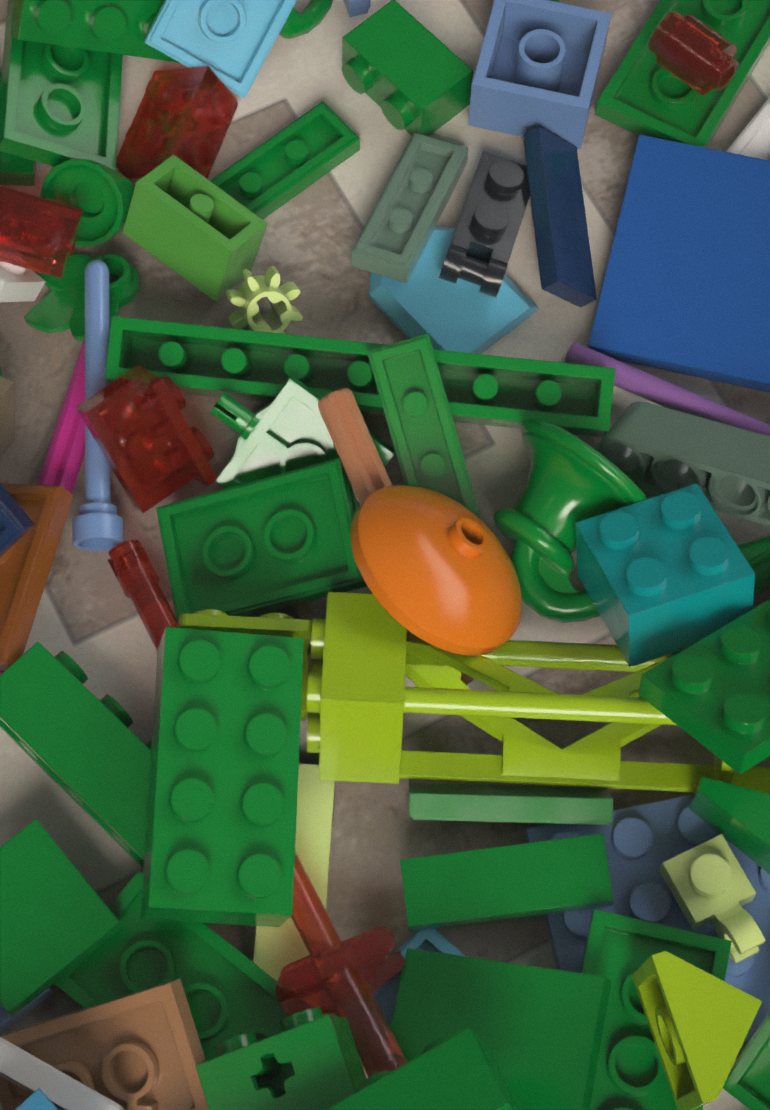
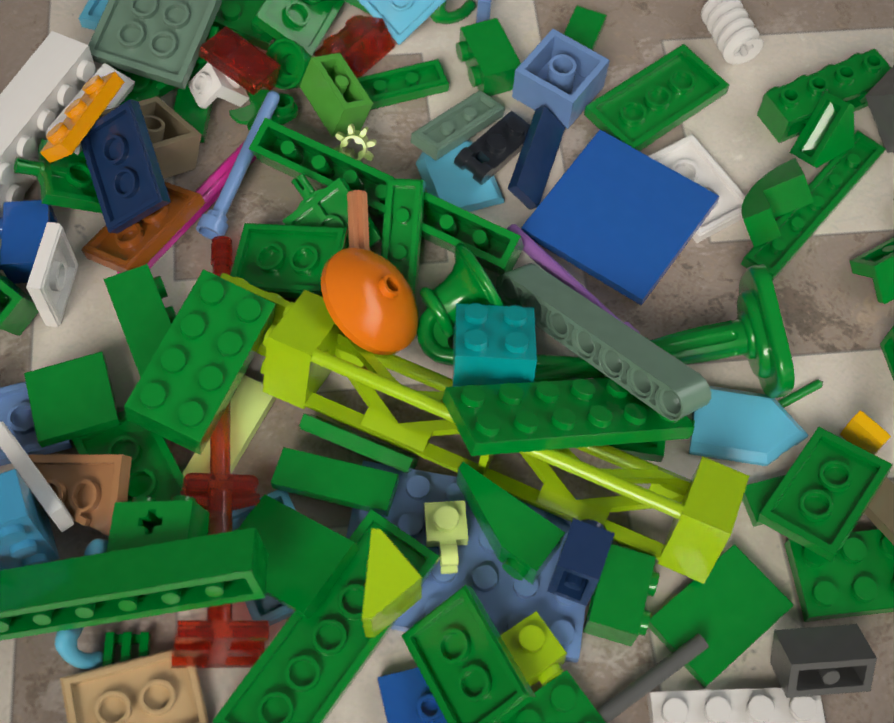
camera: 20 degrees right, 5 degrees down
(147, 437) = (256, 187): clear red bracket -> none
(694, 53) = (648, 96): clear red brick -> none

